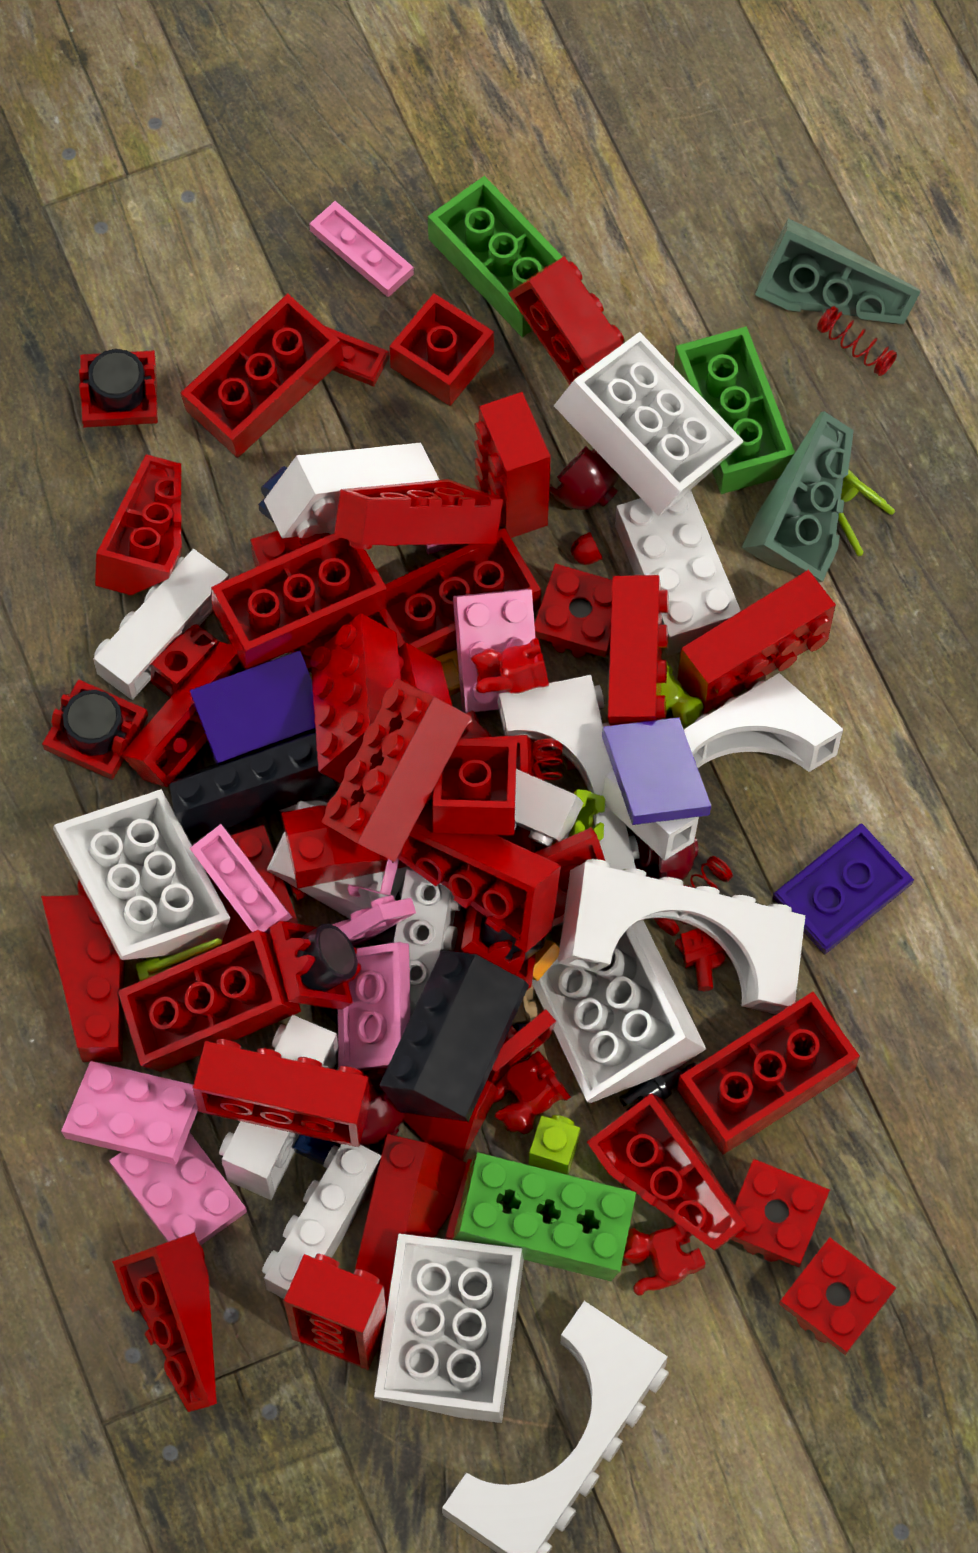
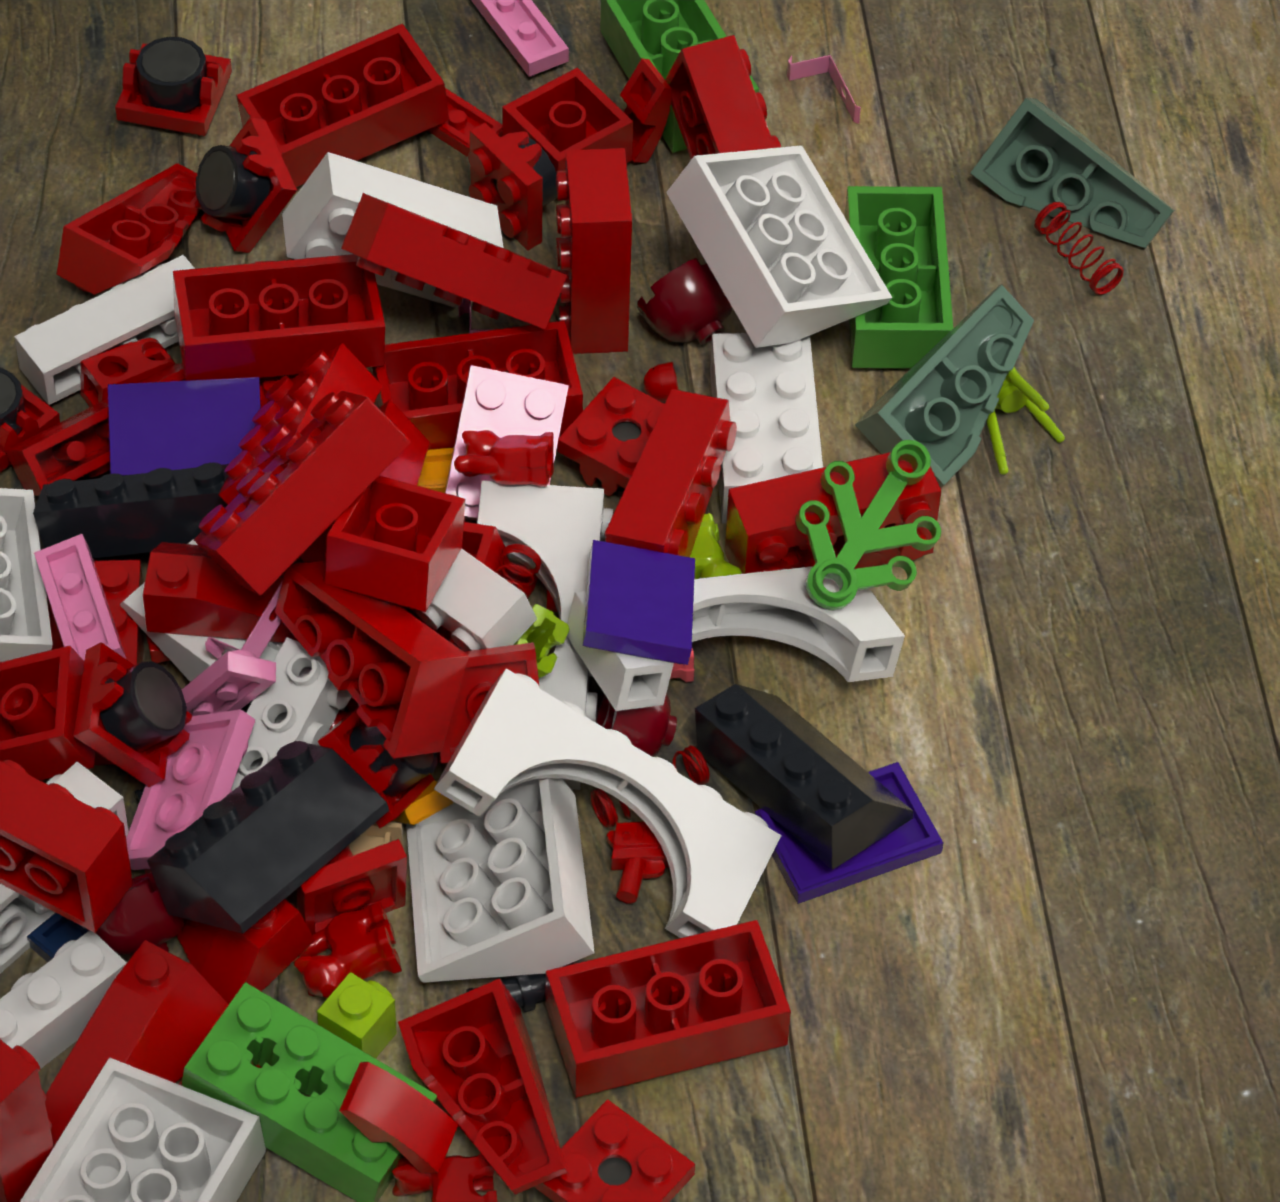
camera: 15 degrees right, 15 degrees down
(216, 470) = (244, 185): none -> piece
(418, 409) = (515, 178): none -> red piece
(498, 312) = (648, 107): none -> red slope
(614, 221) = (819, 66): none -> bright pink piece
(621, 1221) = (398, 1114): none -> red slope
(790, 656) = (863, 533): none -> bright green plant
(797, 857) = (796, 774): none -> black slope

